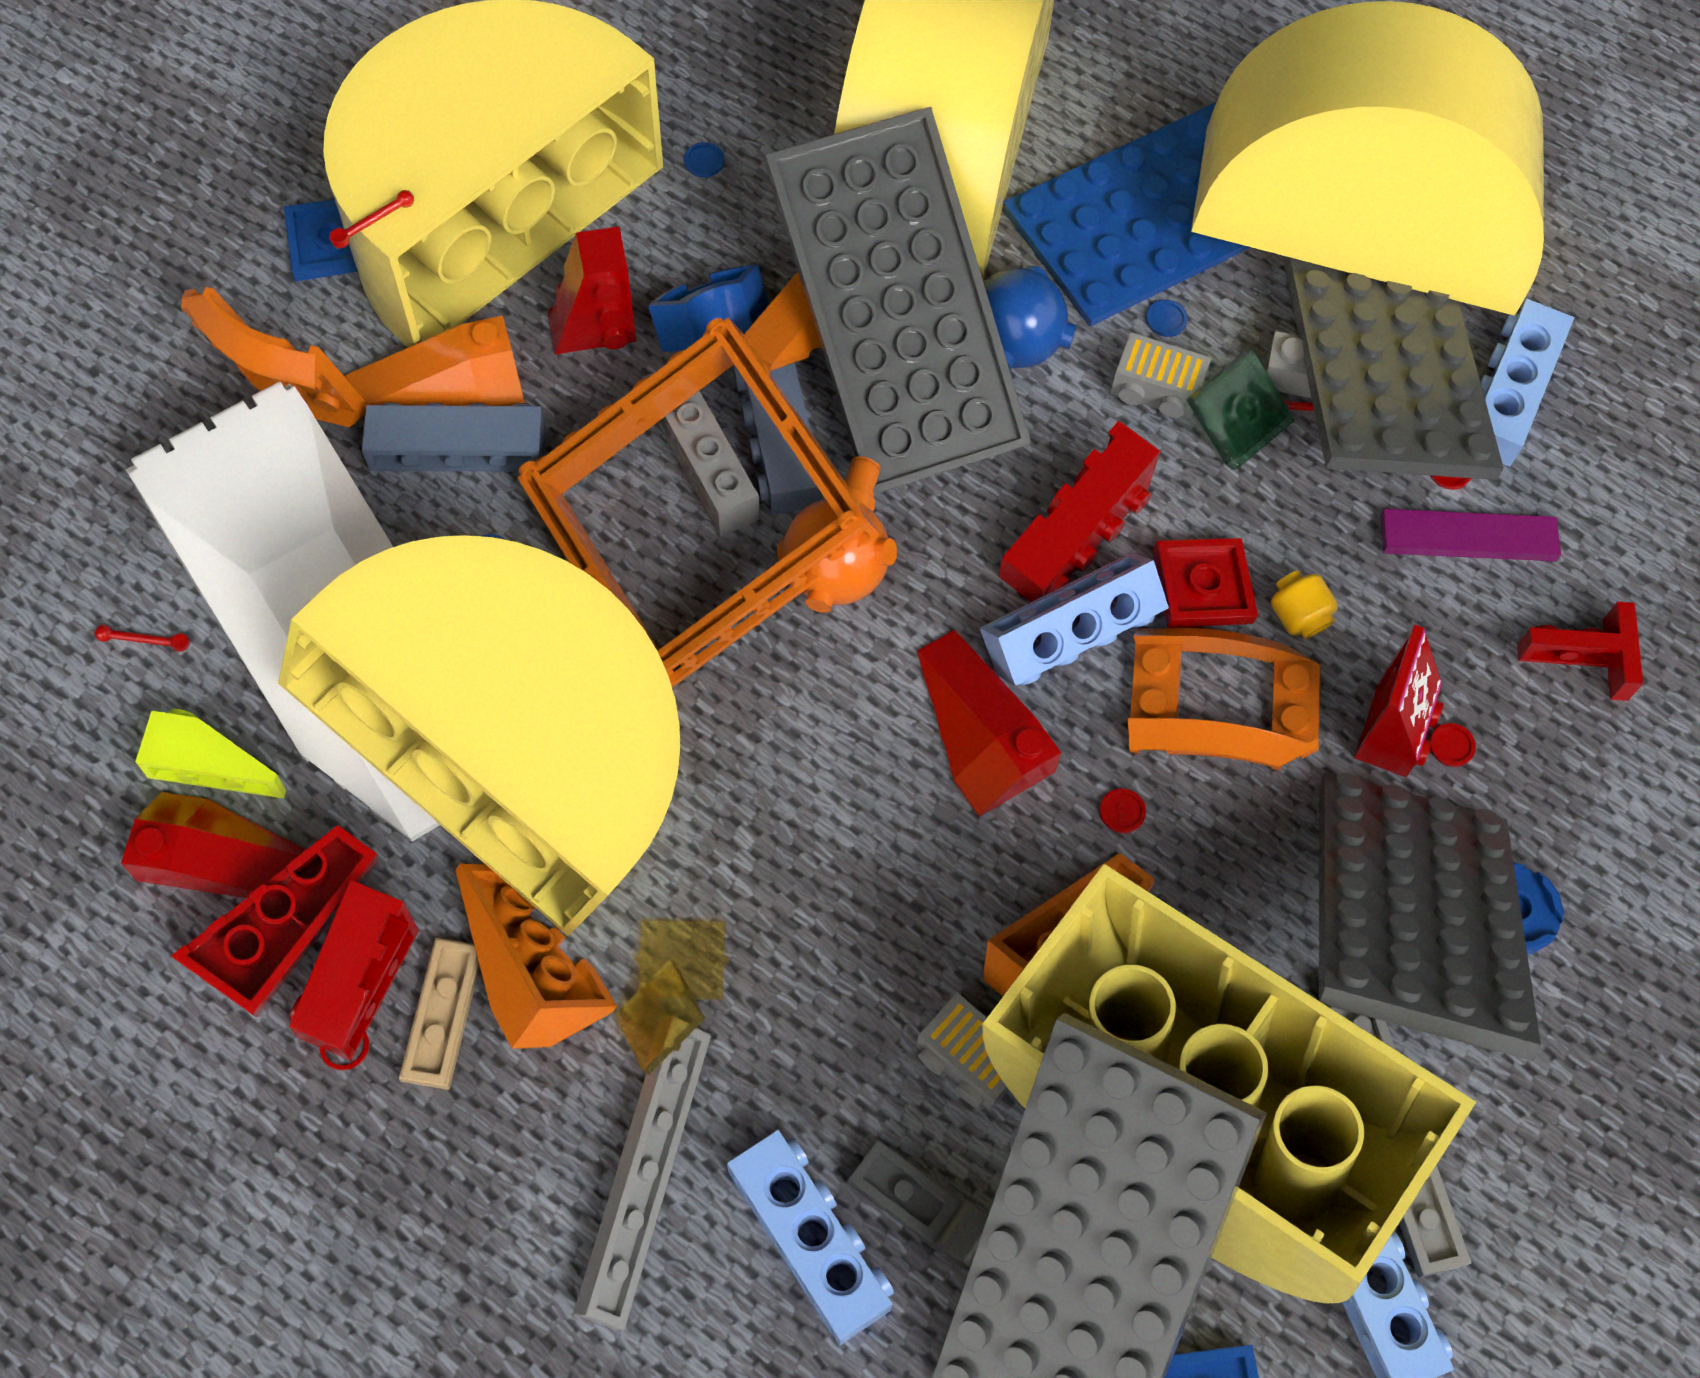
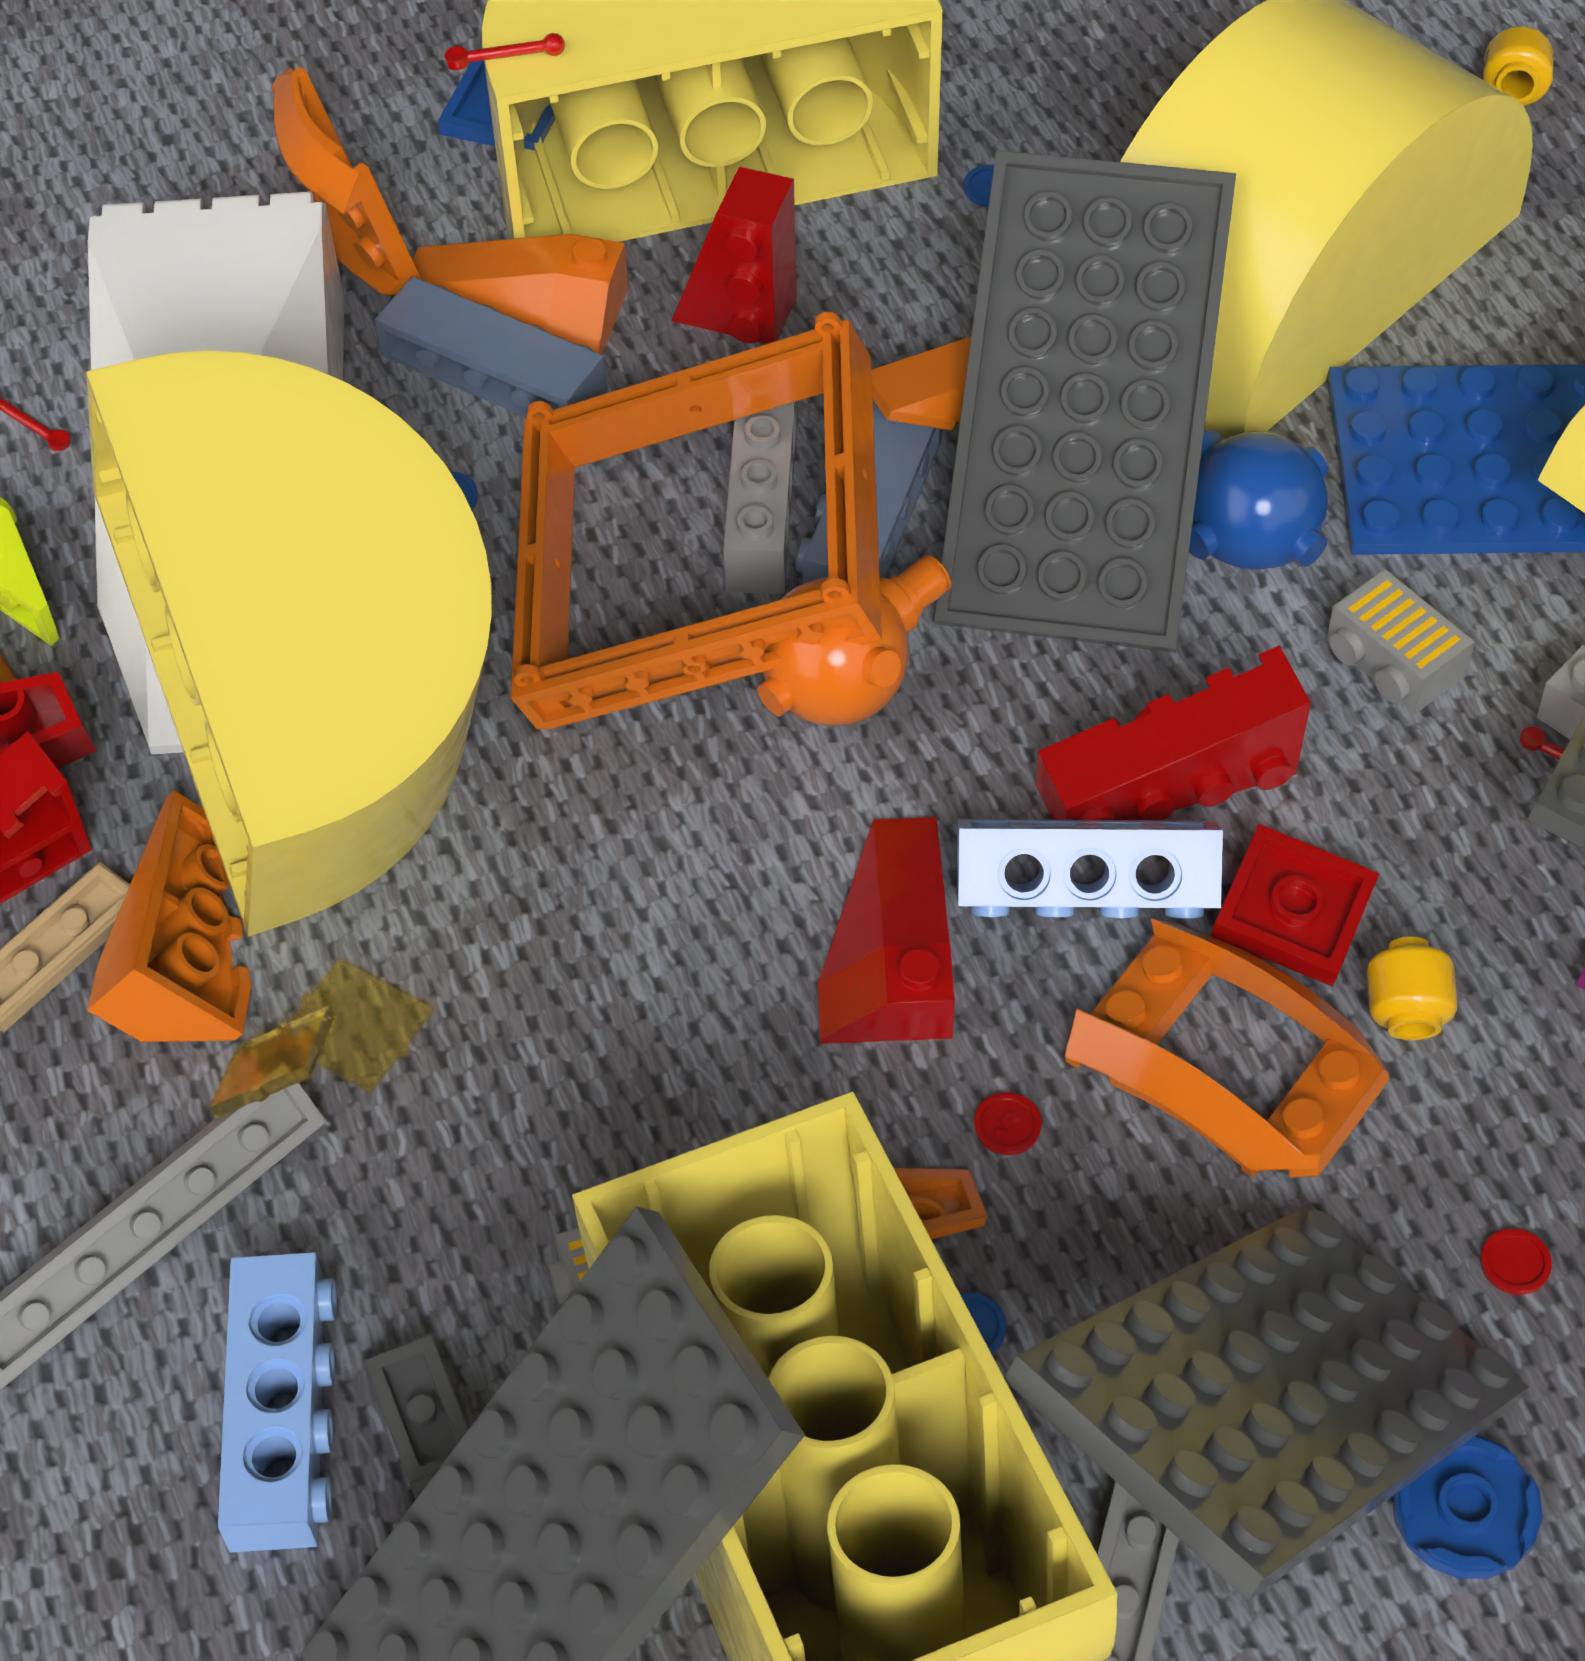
camera: 35 degrees right, 10 degrees down
(683, 314) = (885, 329): blue brick -> none
(1166, 318) = (1461, 585): blue piece -> none
(1240, 410) = (1479, 722): clear green tile -> none
(1403, 709) = (1454, 1160): red slope -> none

